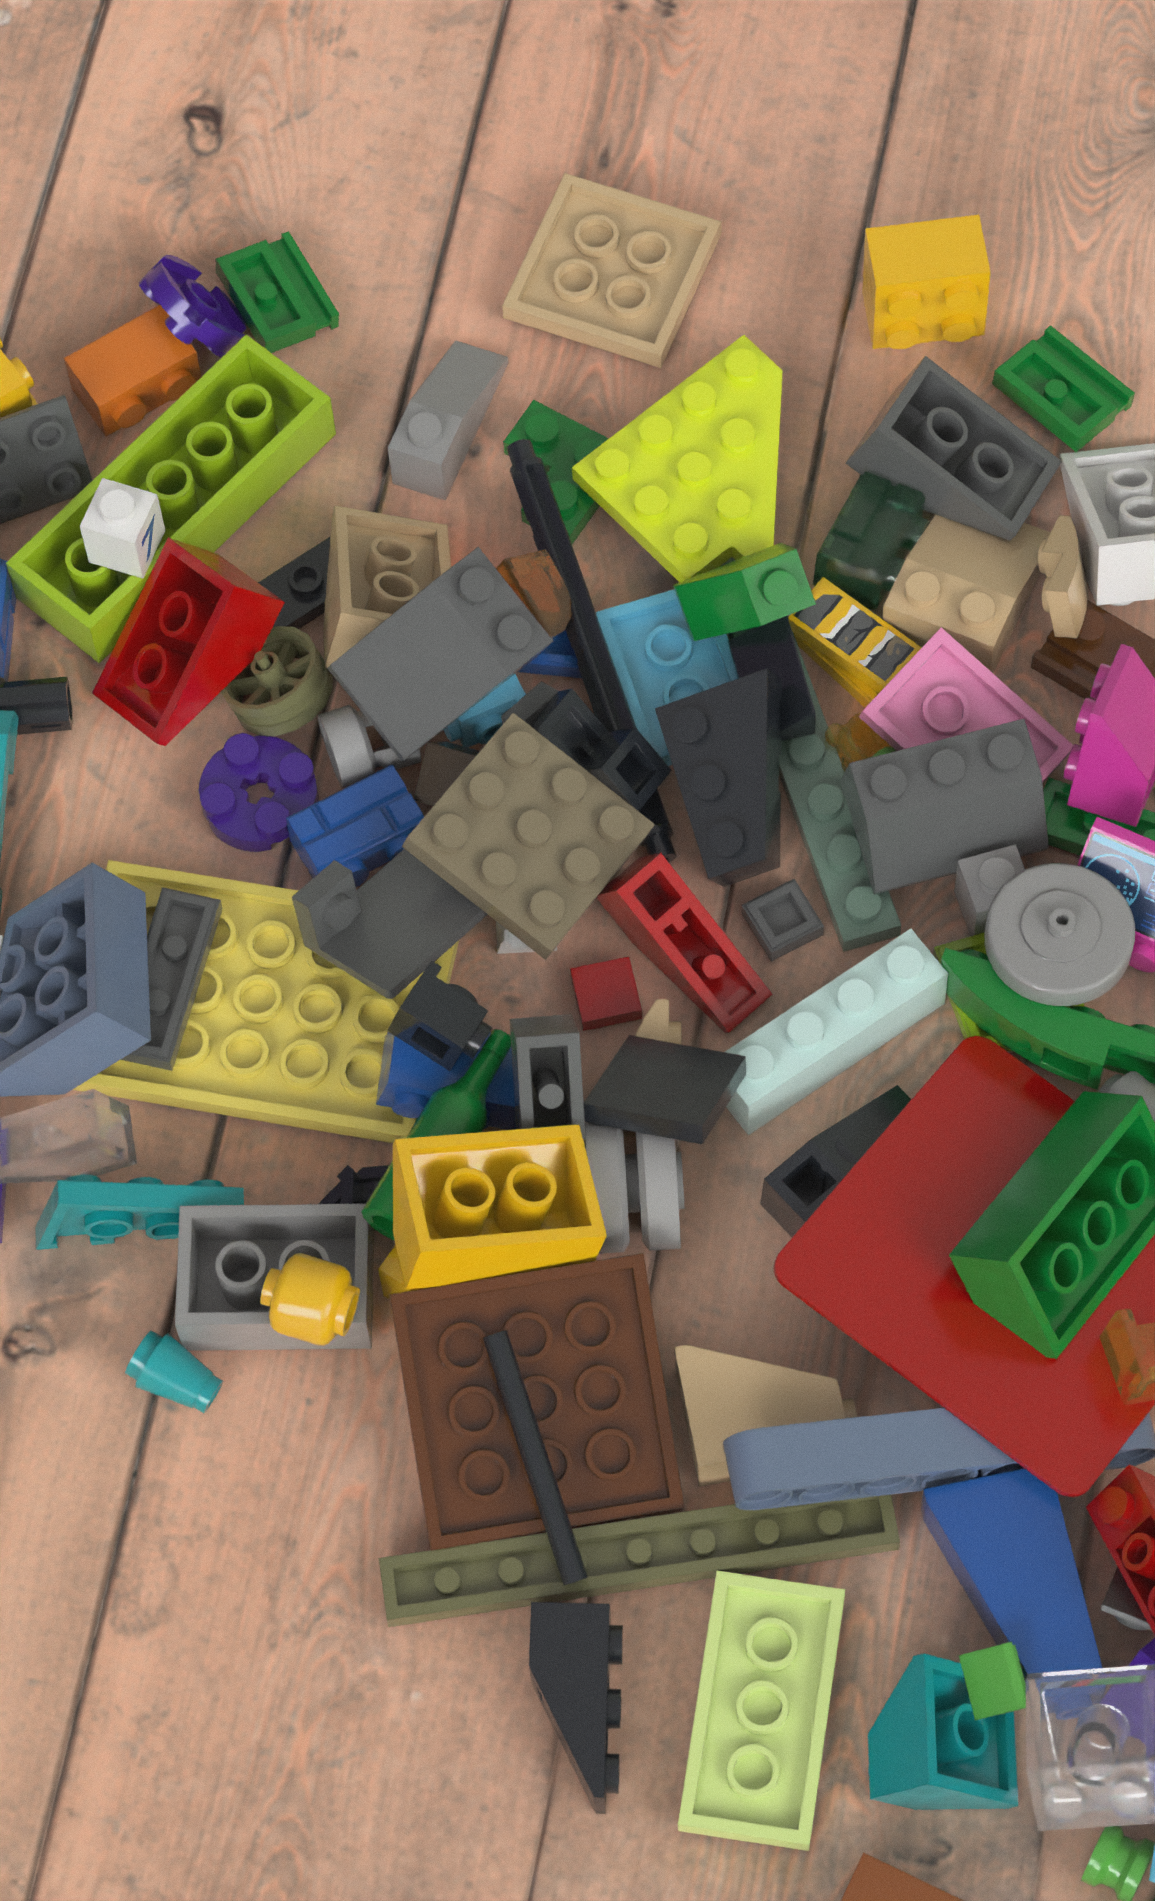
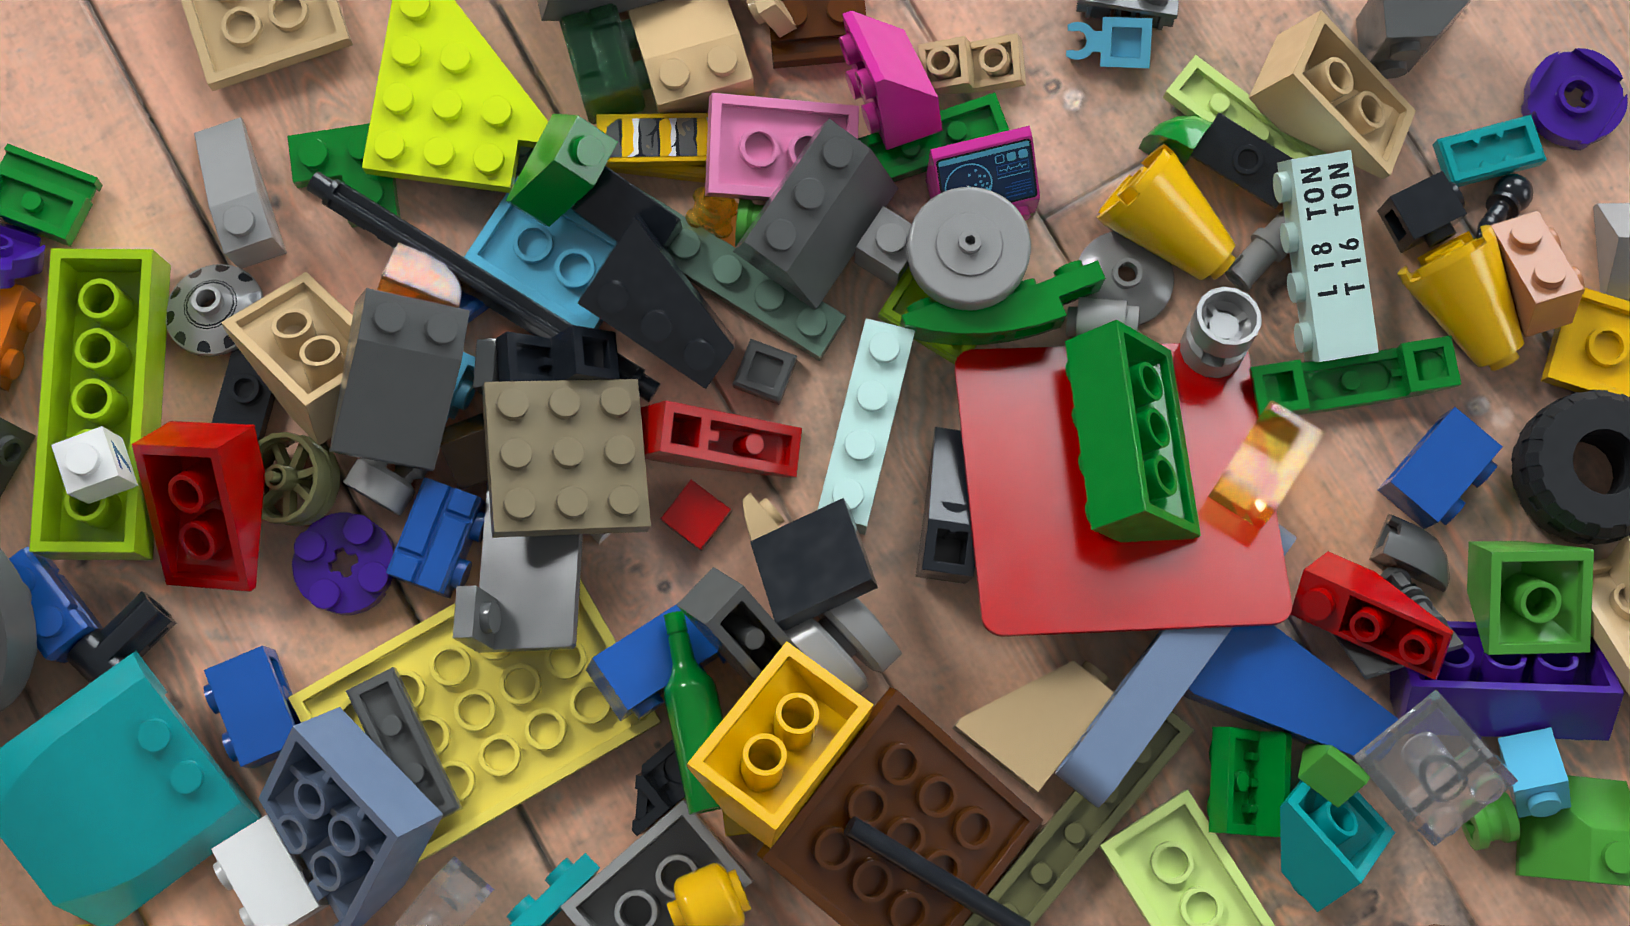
camera: 45 degrees left, 15 degrees up
(74, 829) = (253, 705): none -> blue brick
(331, 482) = (199, 327): none -> light grey dish
(441, 1020) = (628, 640): black brick -> none
(907, 1616) = (1248, 780): none -> green bracket

